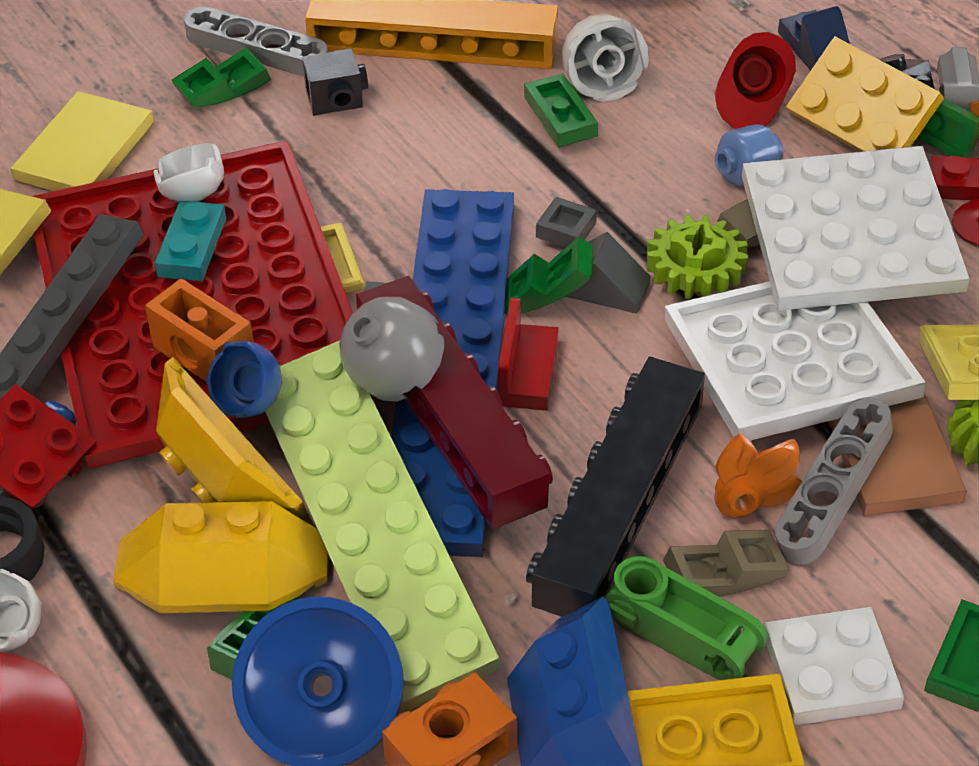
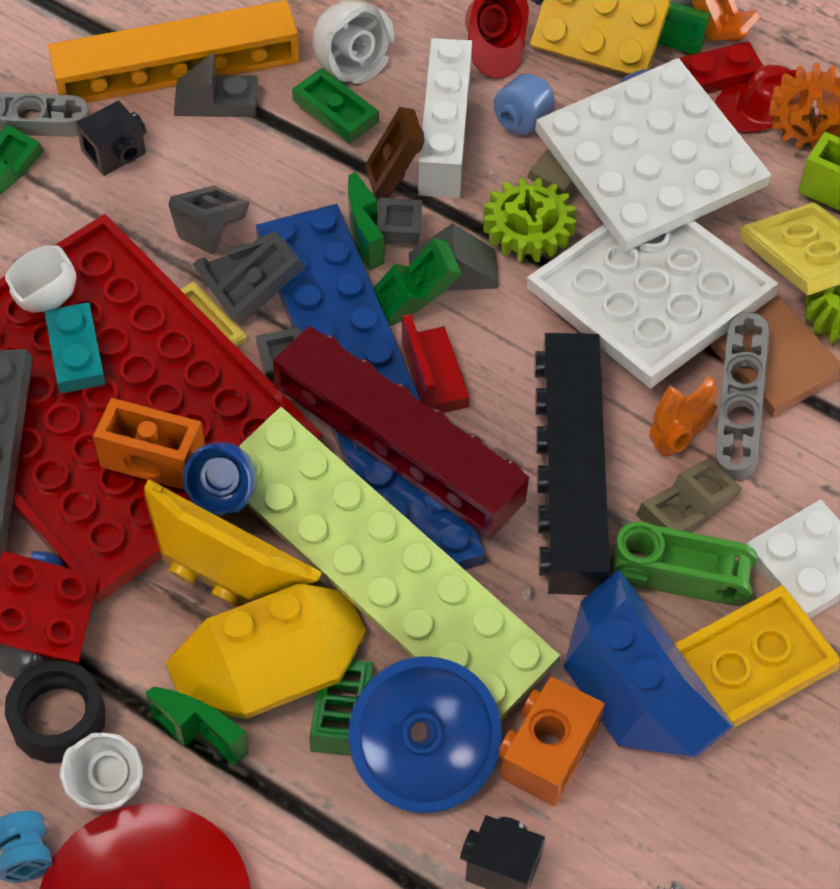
camera: 25 degrees left, 10 degrees up
(112, 598) = (188, 717): none -> green slope
(377, 163) = (203, 213): none -> dark grey slope
(391, 347) = (340, 405): light grey cylinder -> none
(392, 228) = (250, 274): none -> dark grey wing
(450, 73) = (213, 95): none -> dark grey slope
(530, 206) = (363, 222): none -> green slope
(583, 166) = (394, 152): none -> reddish brown plate
(641, 166) = (445, 118): none -> white arch

